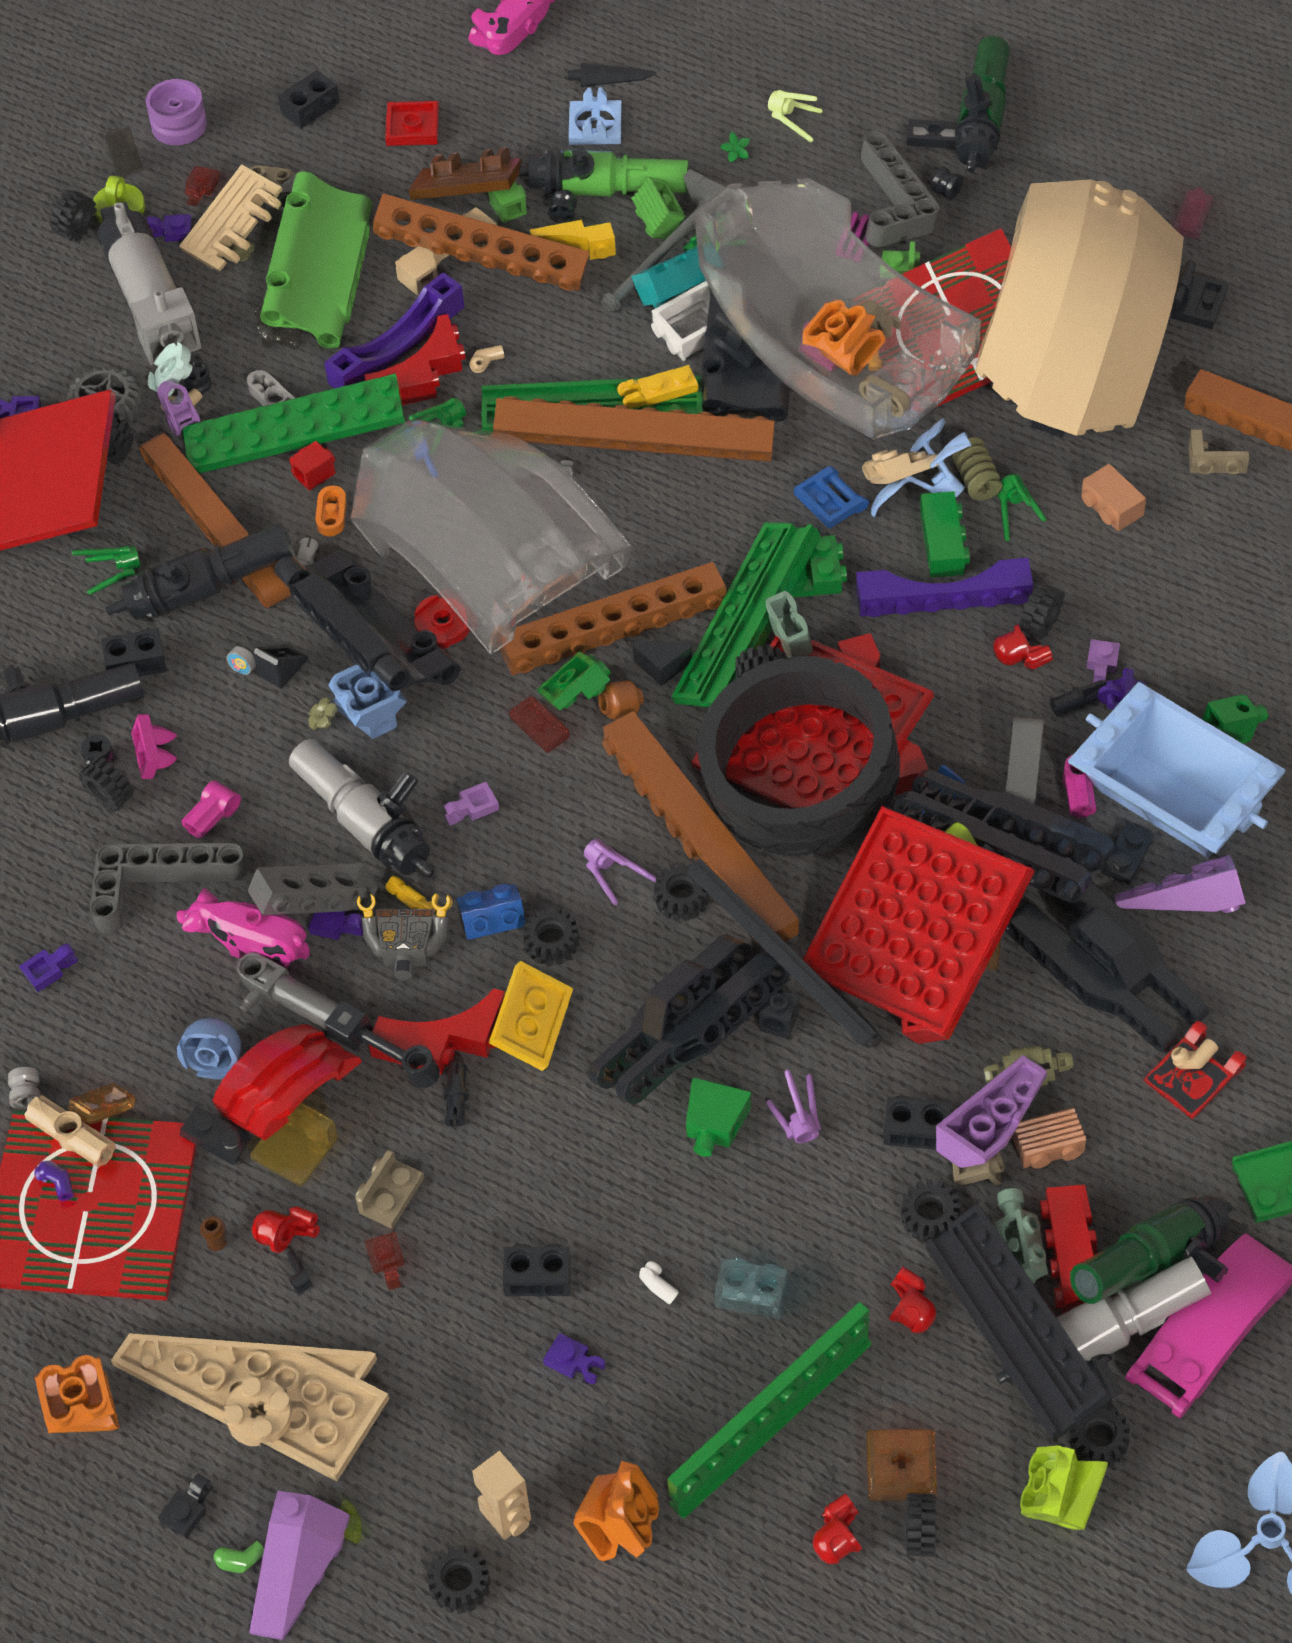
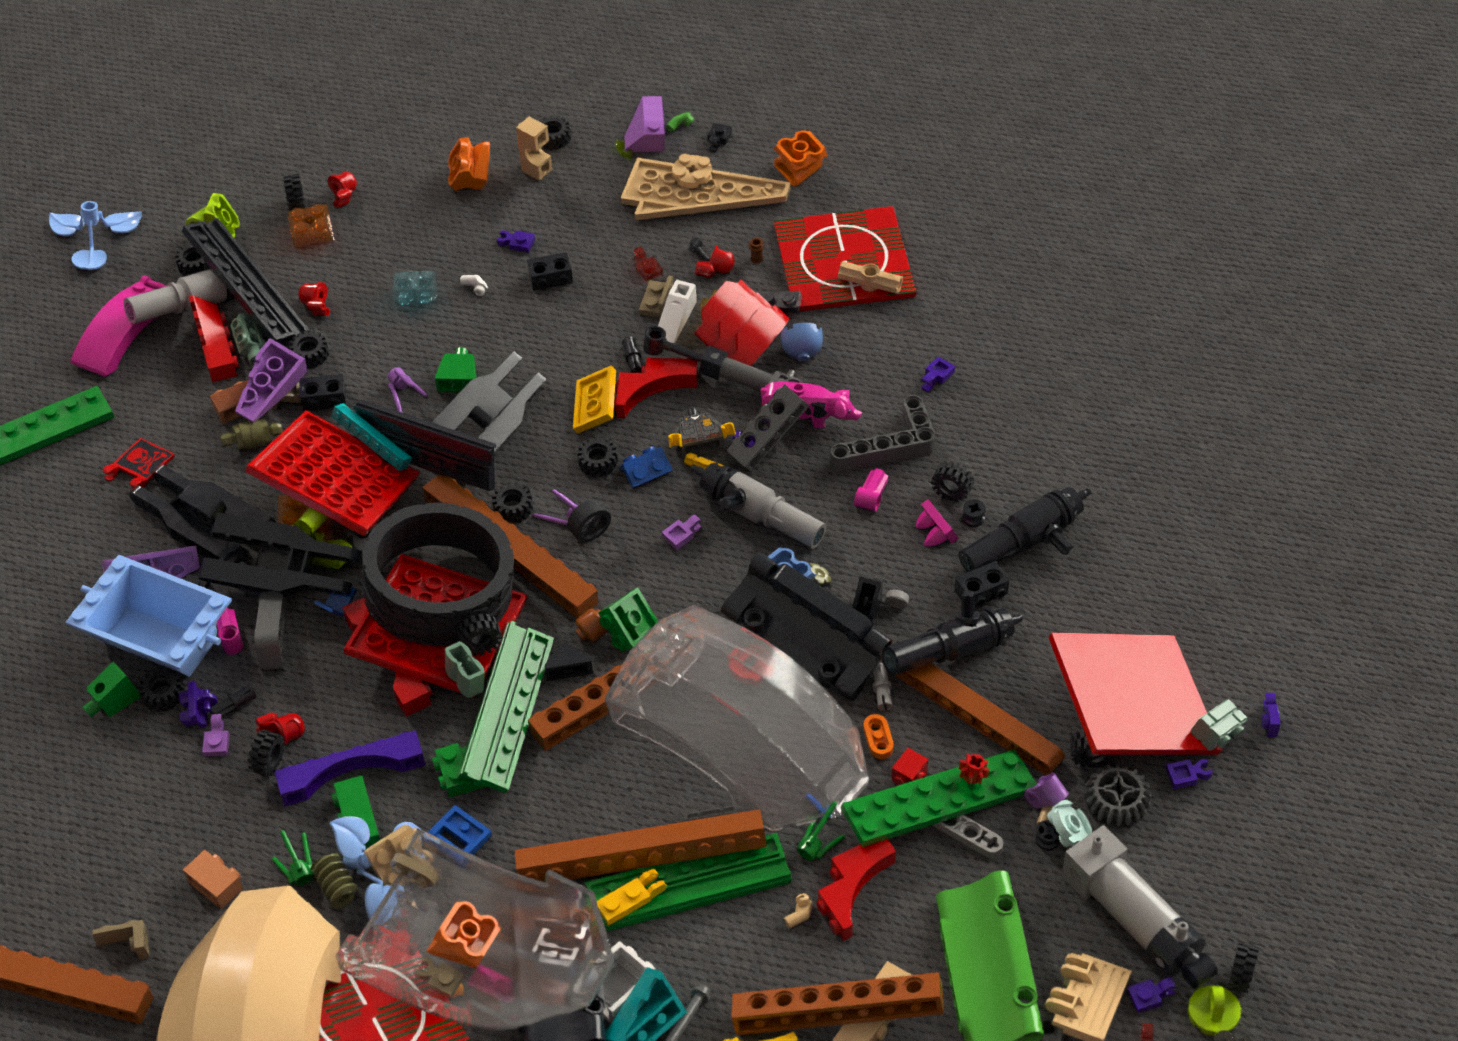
camera: 165 degrees right, 5 degrees down
(24, 1086) = (914, 302): light grey wheel -> none
(51, 1171) = (868, 257): dark purple arm -> none
(101, 1103) = (858, 297): clear orange piece -> none
(125, 558) = (1028, 660): green plant -> none
(246, 424) = (973, 769): none -> red gear
(369, 1141) = (677, 309): none -> white slope
(436, 299) = (870, 930): dark purple arch -> none
(539, 724) = (657, 600): clear red plate -> none
(582, 815) = (582, 514): none -> black tyre
(769, 1411) = (388, 223): green plate -> none
(858, 997) = (371, 437): none -> teal piece
(1155, 1245) = (158, 330): dark green piece -> none
(1194, 1059) = (138, 462): tan arm -> none

